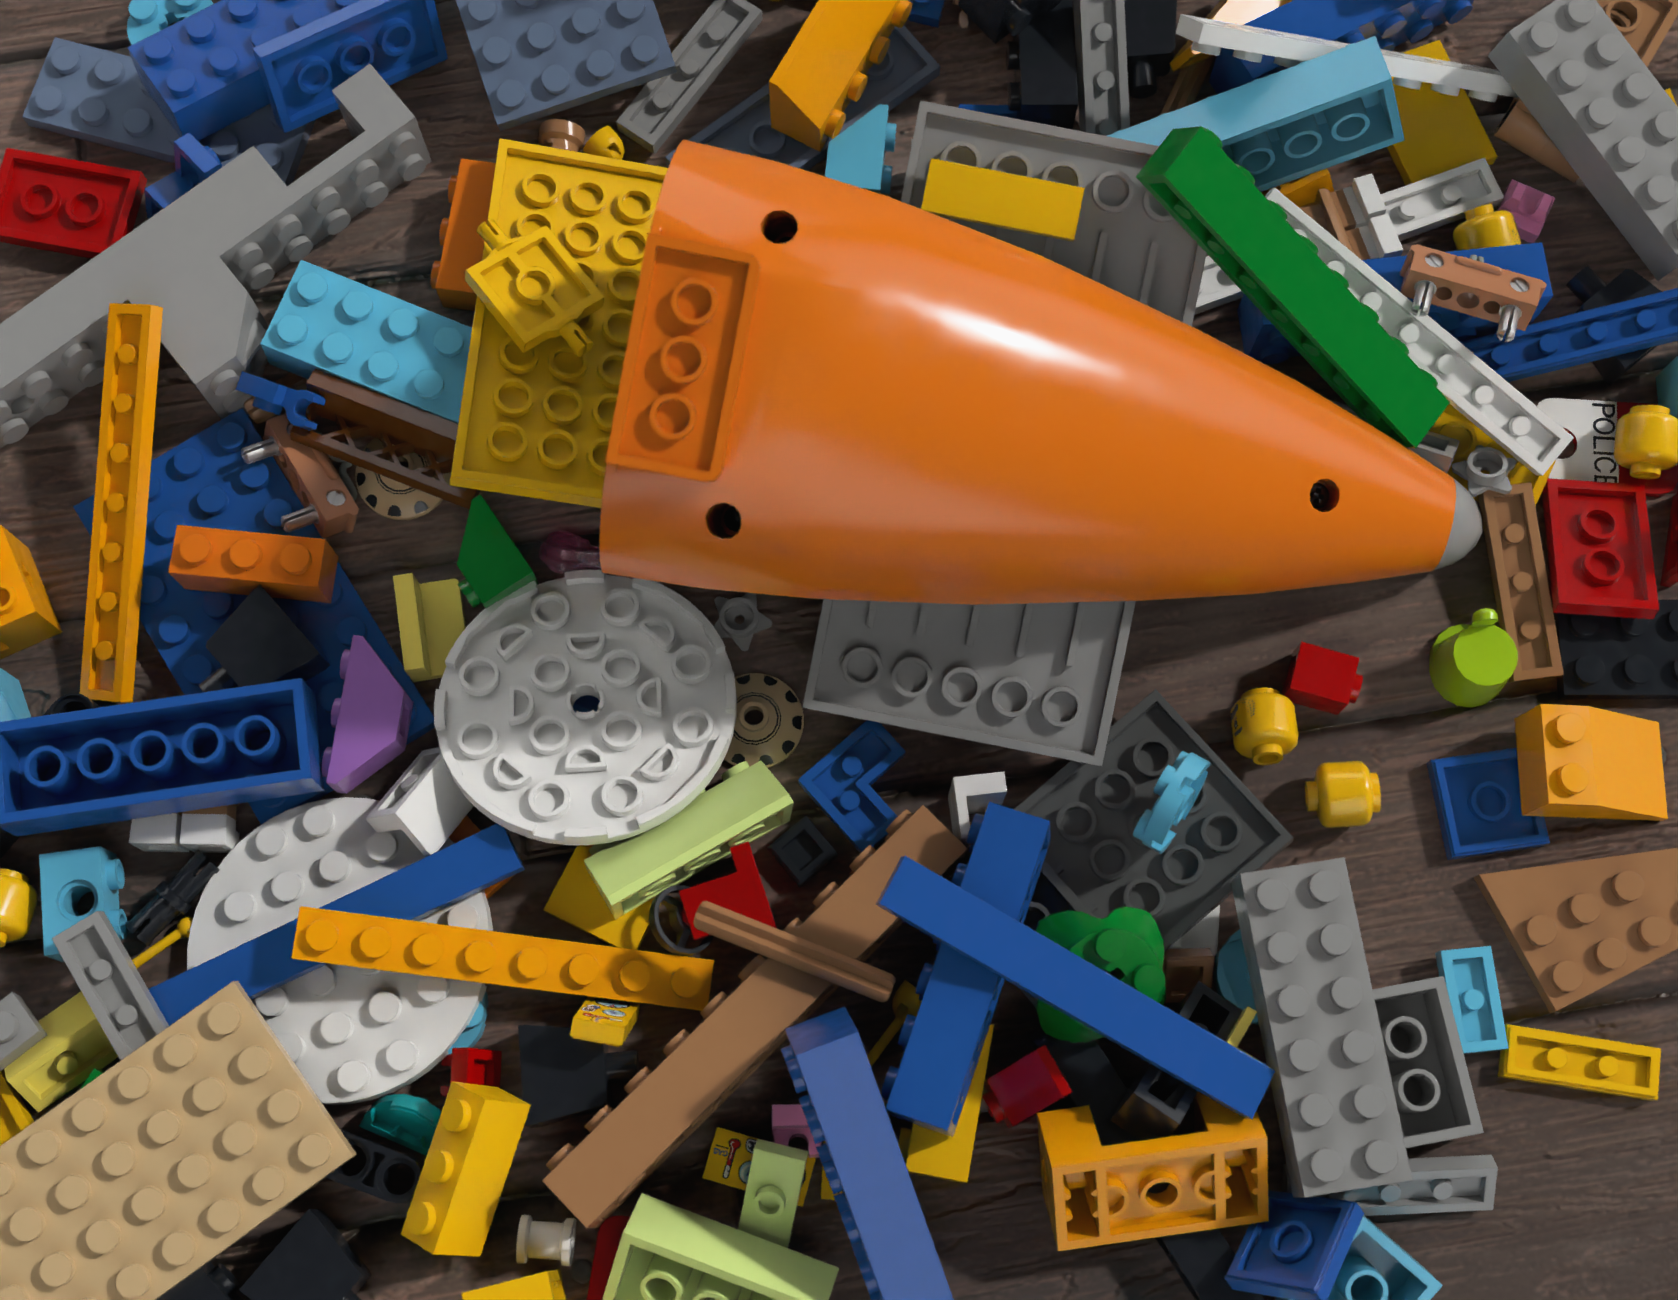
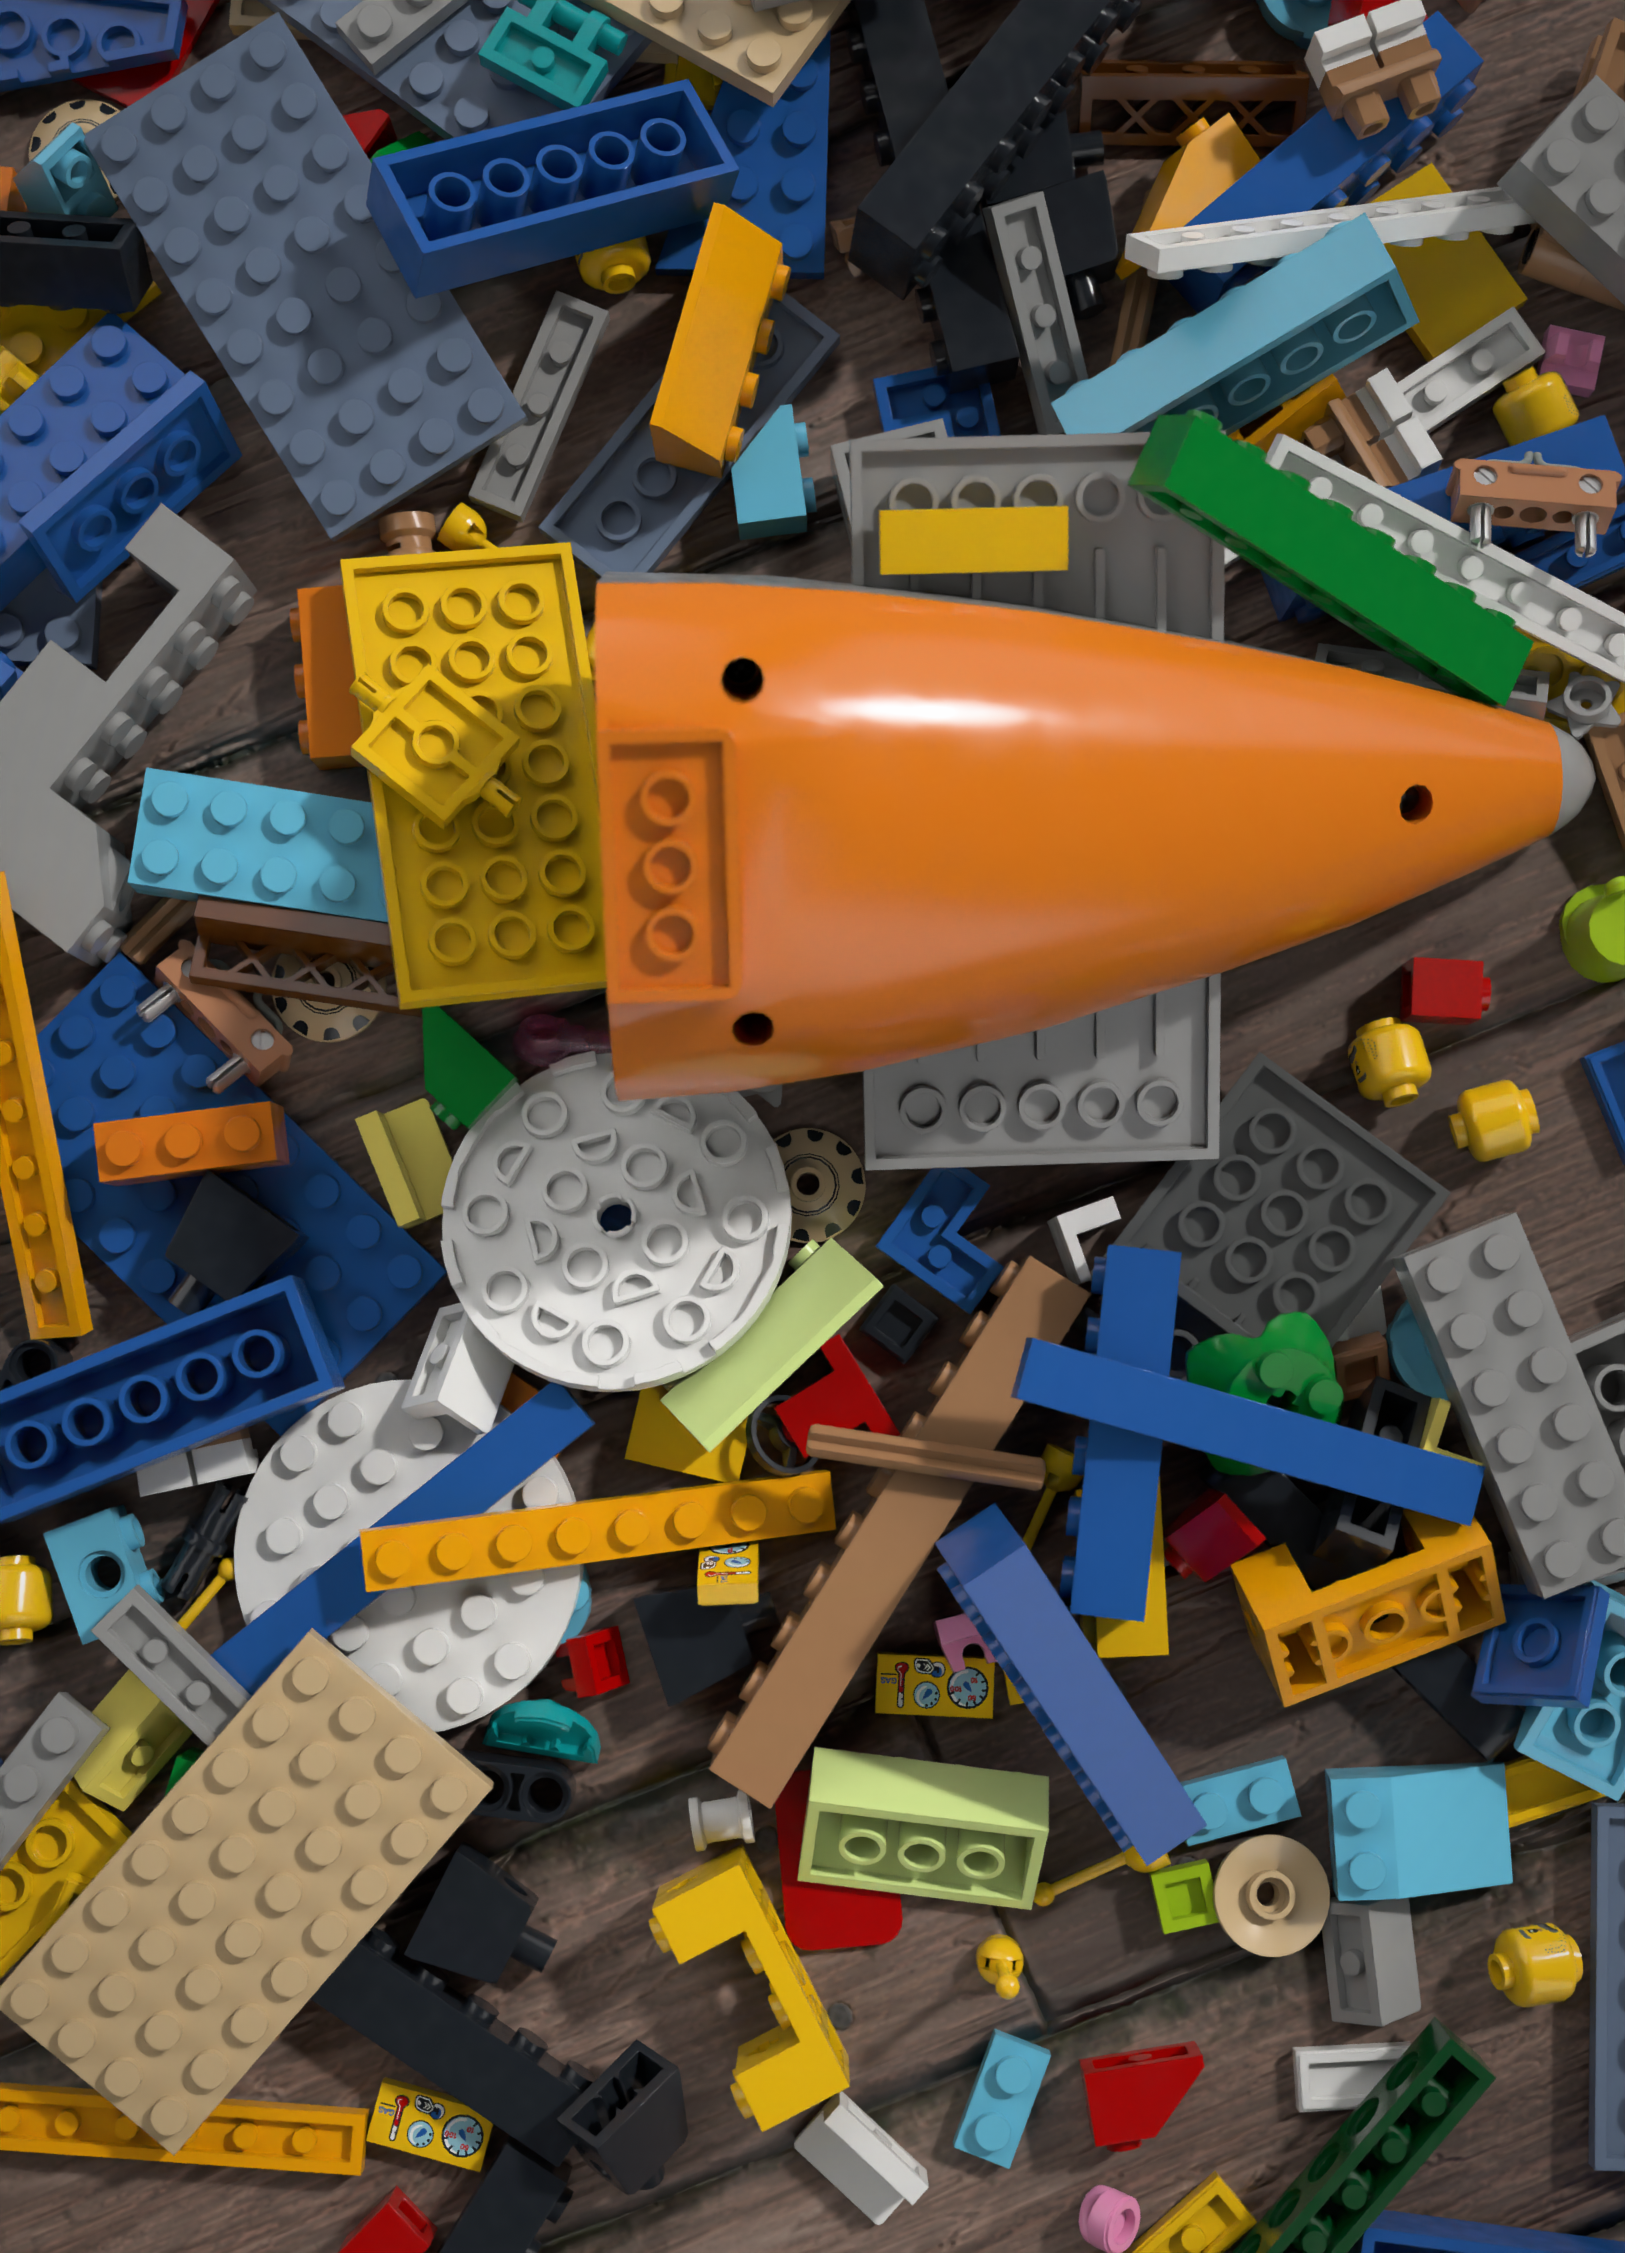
camera: 10 degrees left, 10 degrees up
(274, 396) = (159, 935): blue plate -> none
(368, 719) = (372, 1291): medium lavender slope -> none
(465, 1170) = (616, 1769): yellow brick -> none
(773, 1191) = (958, 1713): yellowish green plate -> none
(1177, 793) = (1308, 1187): medium azure plate -> none

